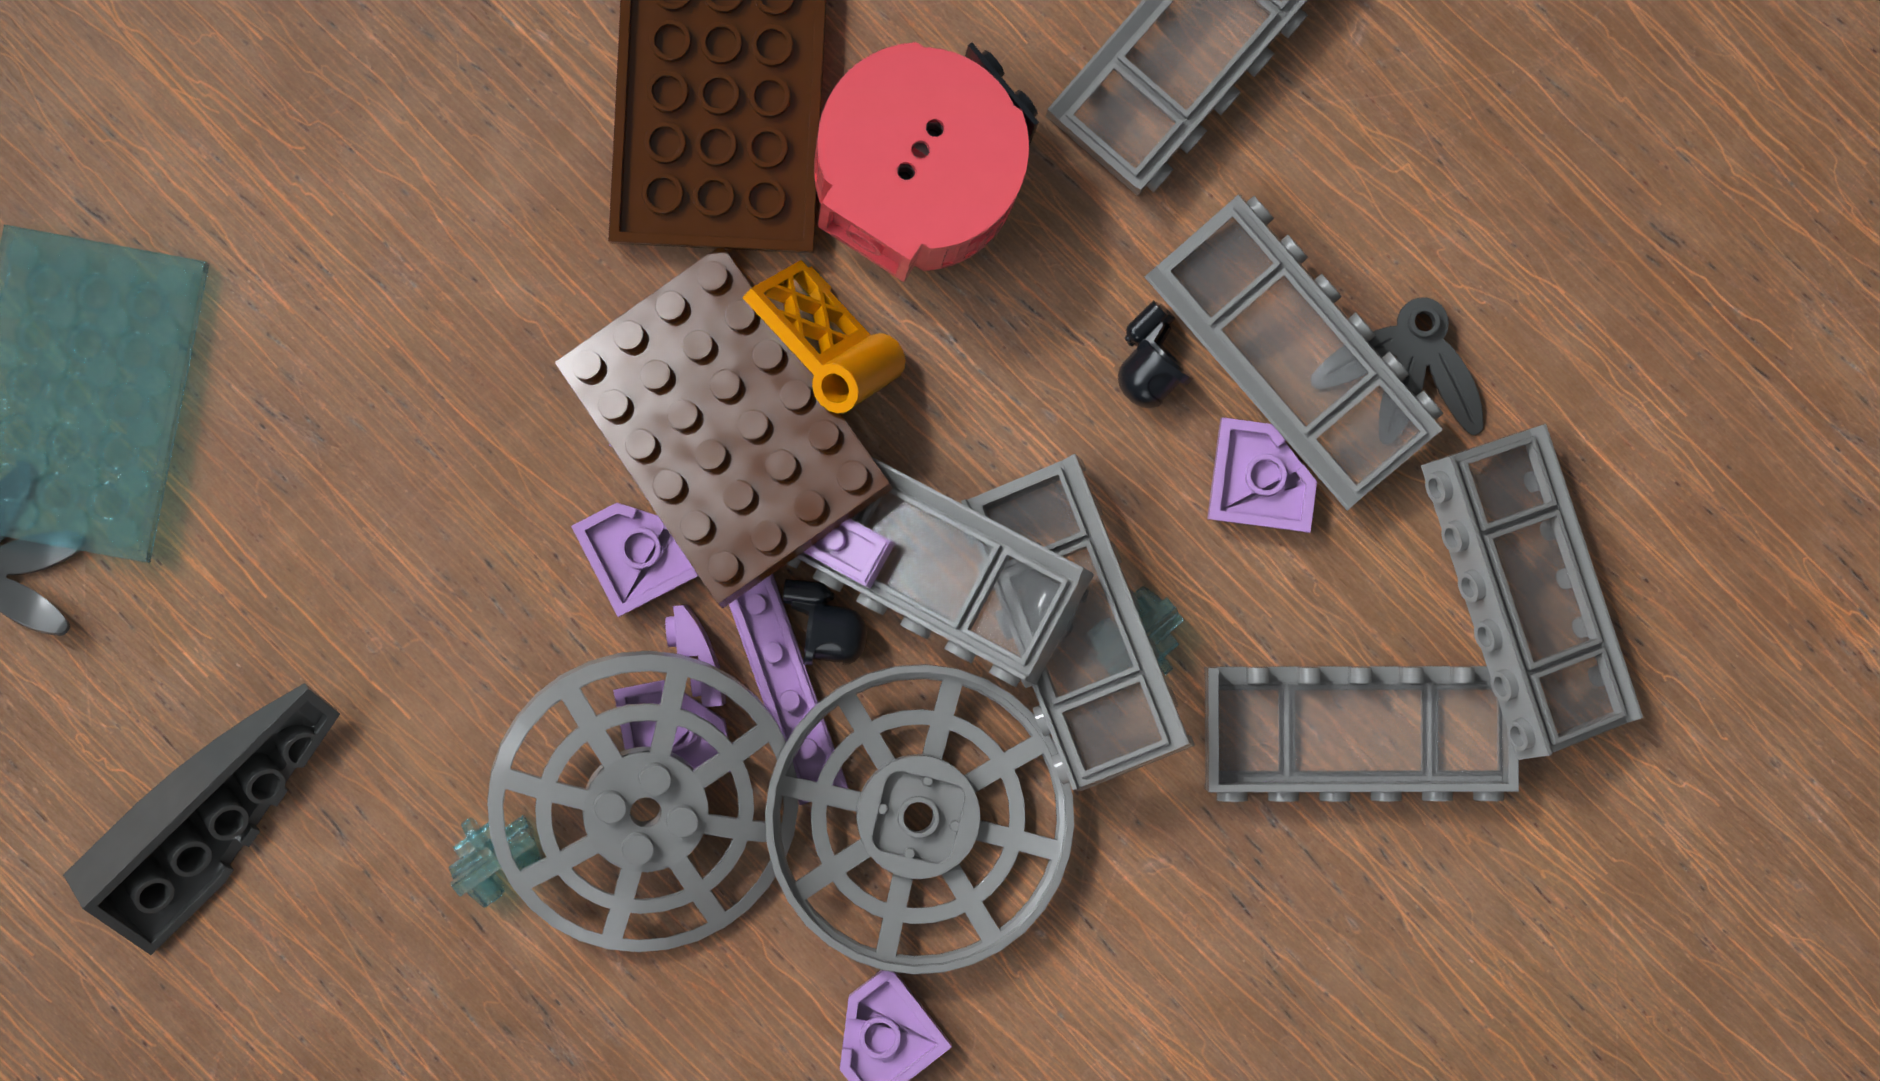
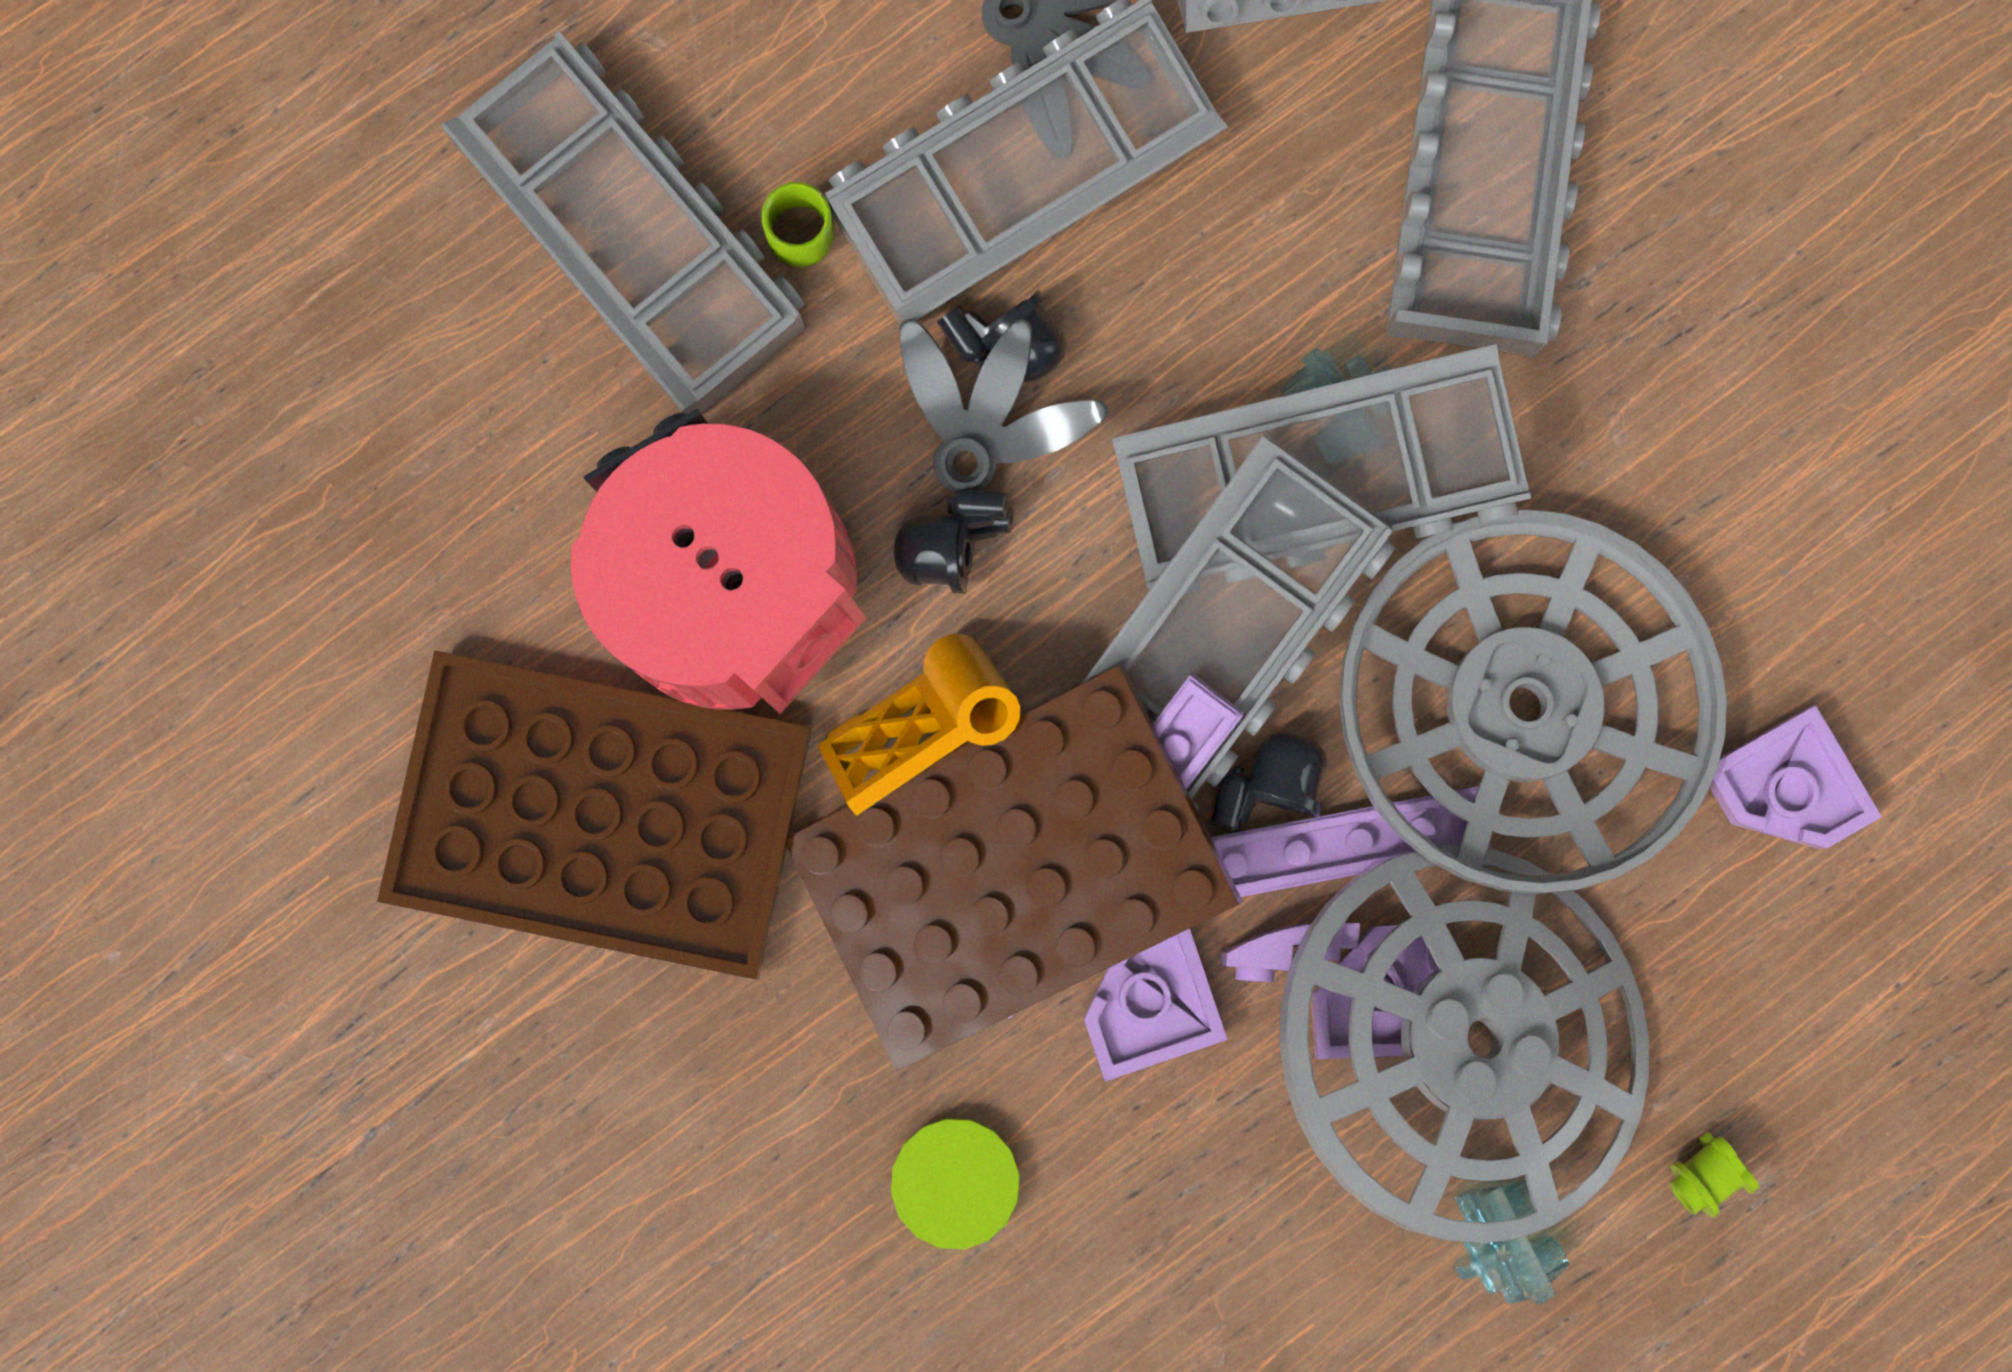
camera: 85 degrees left, 5 degrees down
(475, 422) = (955, 1183): none -> lime tile
(568, 1009) = (1710, 1177): none -> lime brick
(972, 334) = (942, 546): none -> black piece
(1100, 355) = (992, 398): none -> plant
(1222, 152) = (798, 195): none -> lime piece
(1259, 479) = (1171, 232): lavender plate -> none

